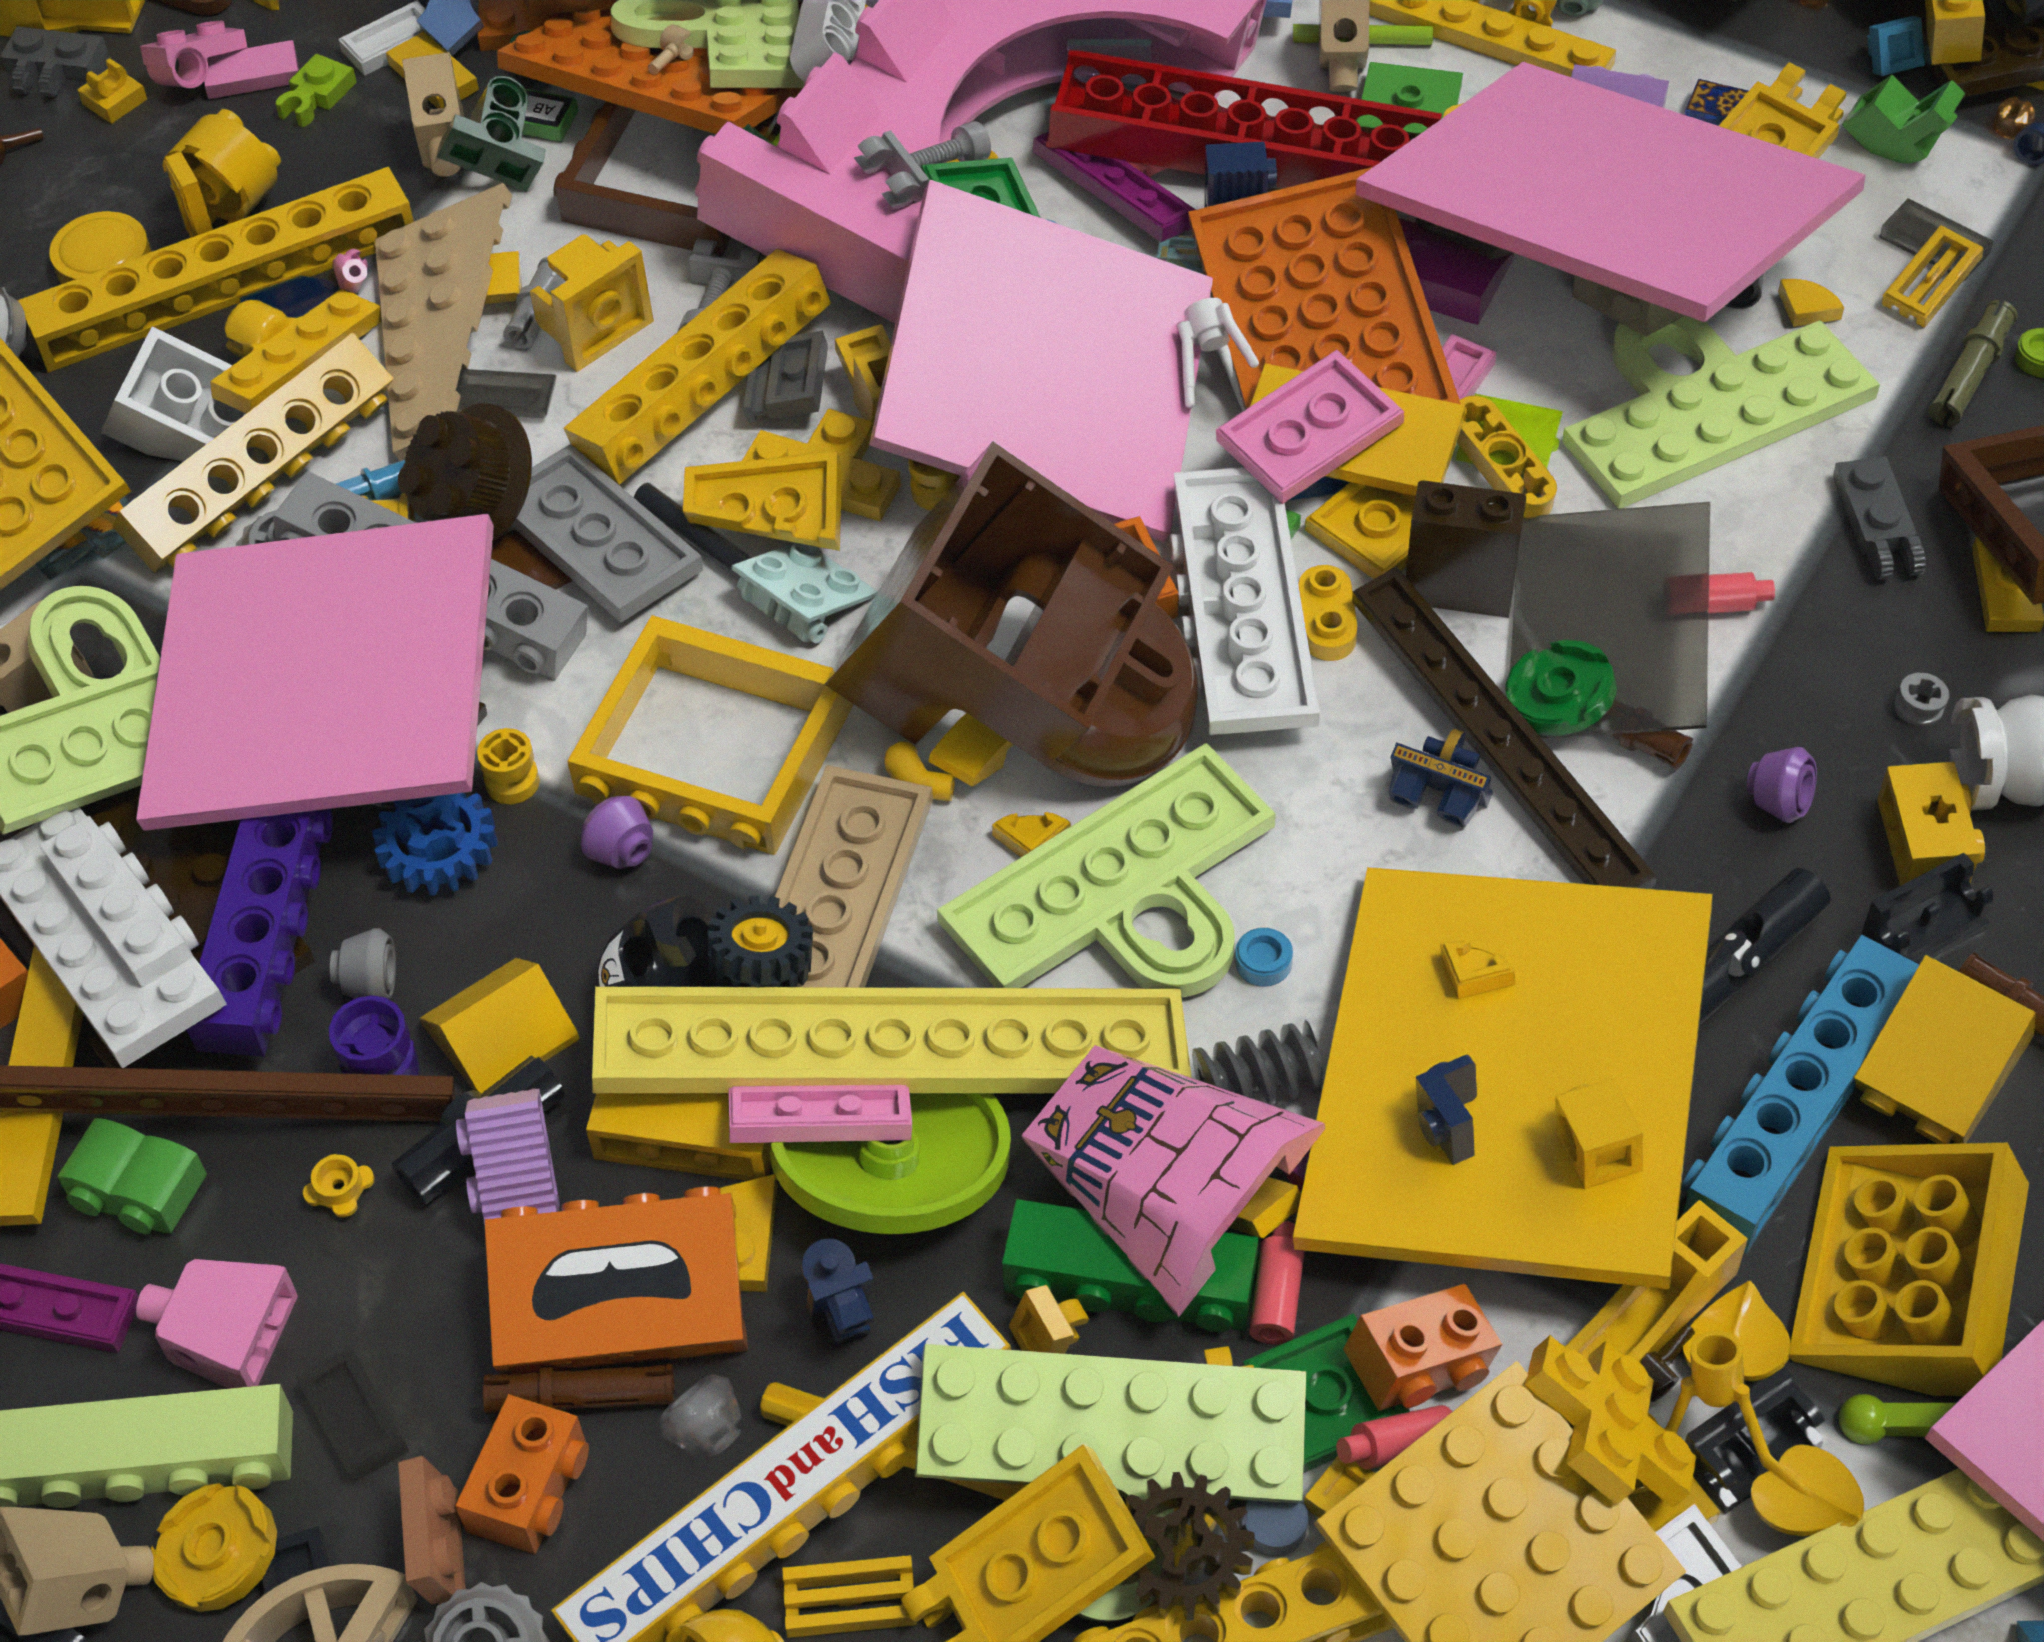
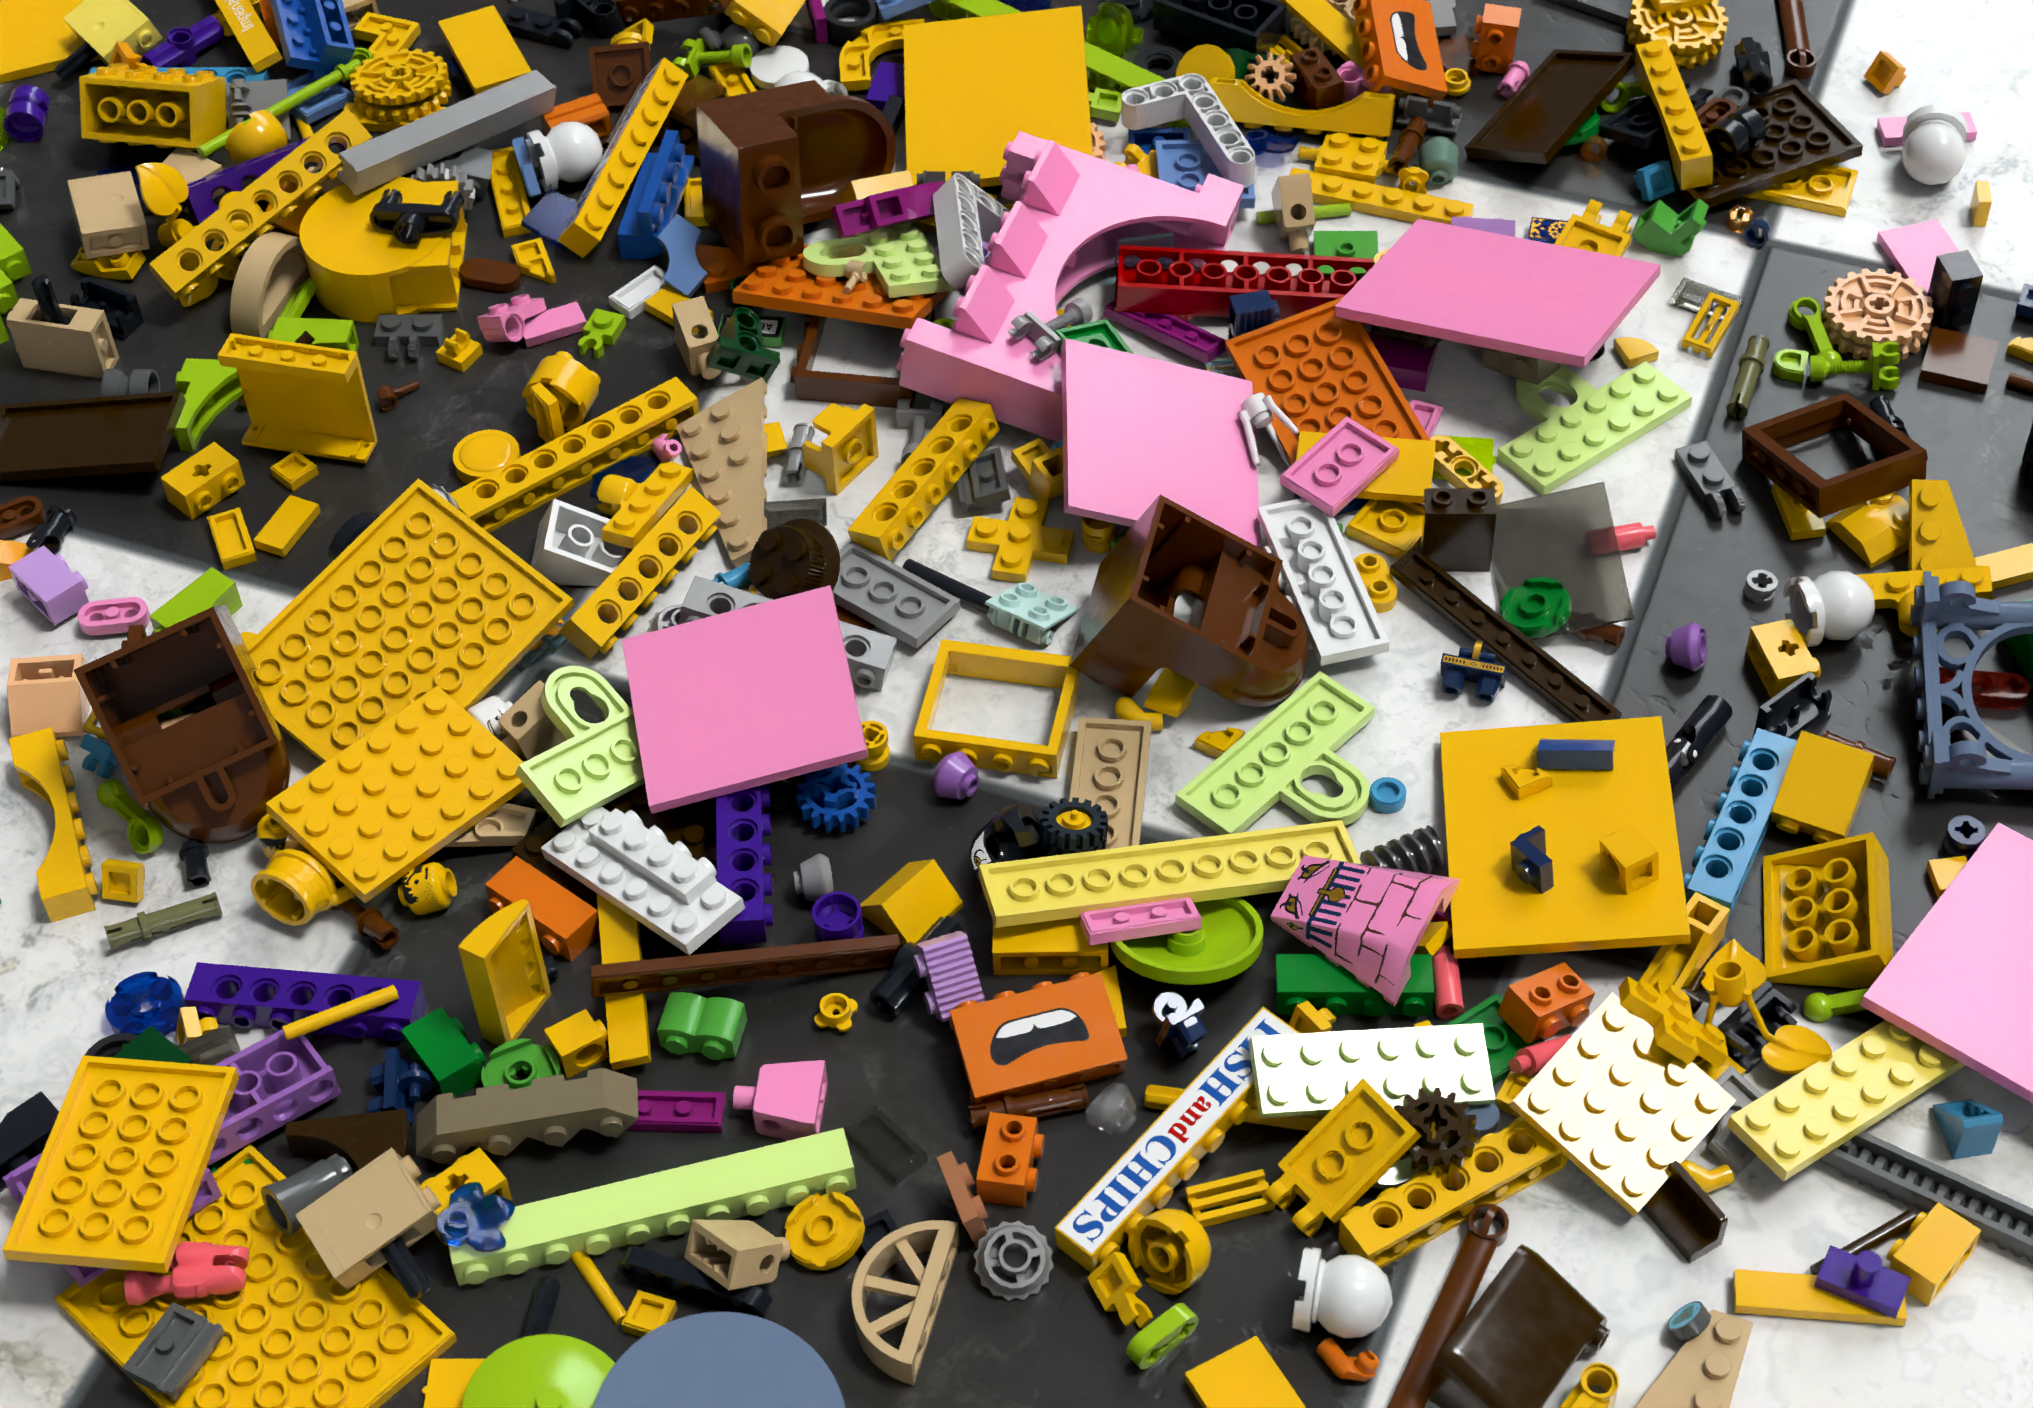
camera: 10 degrees left, 5 degrees down
(770, 497) = (997, 556): yellow wing -> none
(1562, 937) = (1576, 754): none -> slope

